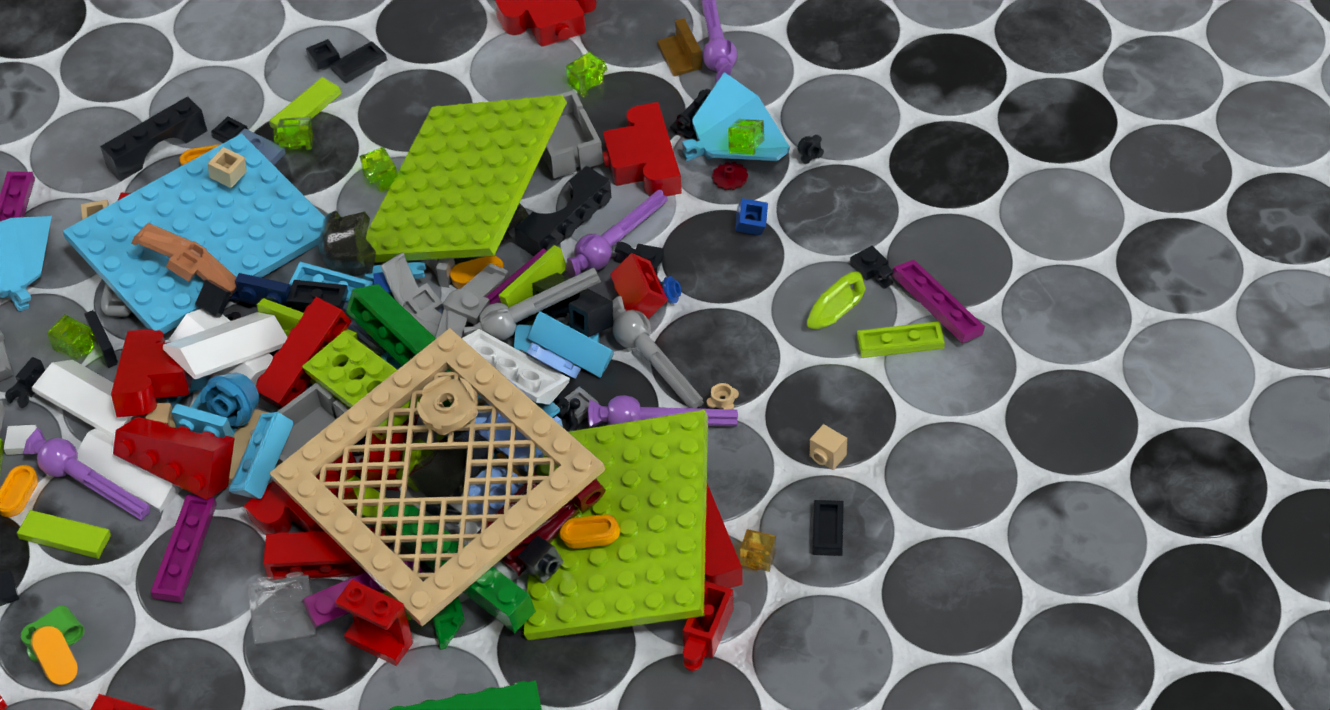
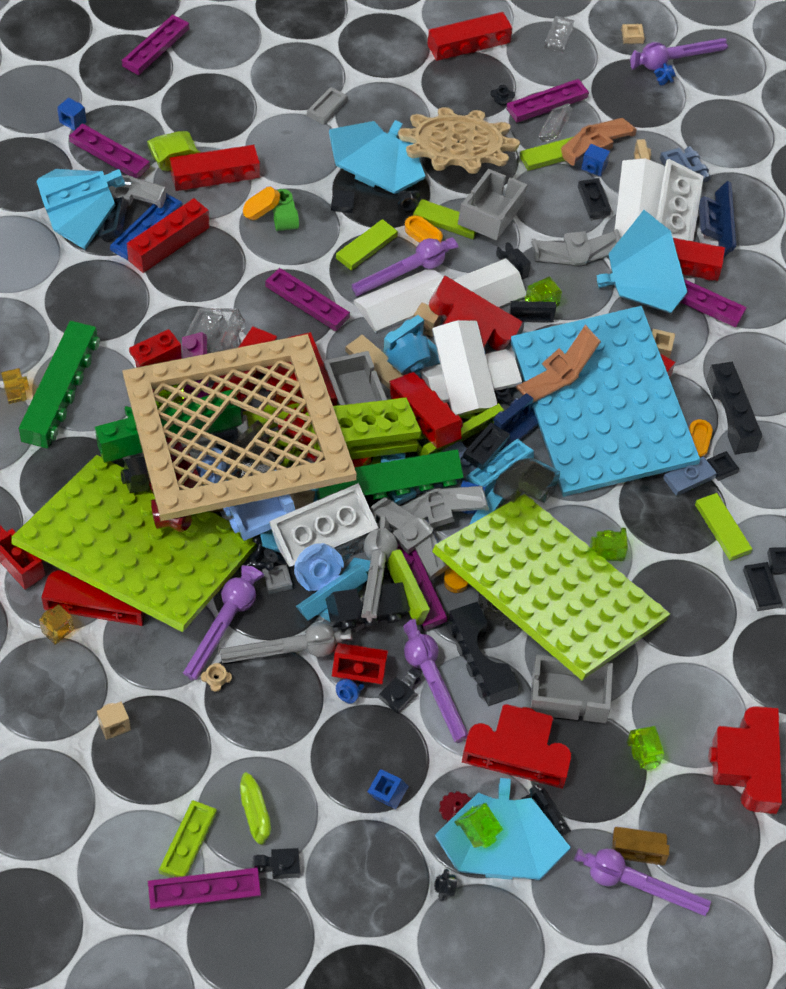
camera: 110 degrees right, 5 degrees up
(16, 438) = (468, 246): white tile -> none
(177, 455) = (380, 307): red wedge -> none
(213, 298) = (518, 376): black tile -> none
(227, 167) = (649, 422): tan plate -> none
(261, 455) = (340, 348): medium azure slope -> none
(294, 133) = (685, 500): clear neon green brick -> none
(451, 418) = (272, 450): tan plate -> none
(590, 531) = (135, 513): light orange tile -> none
(828, 528) = (47, 687): black tile -> none

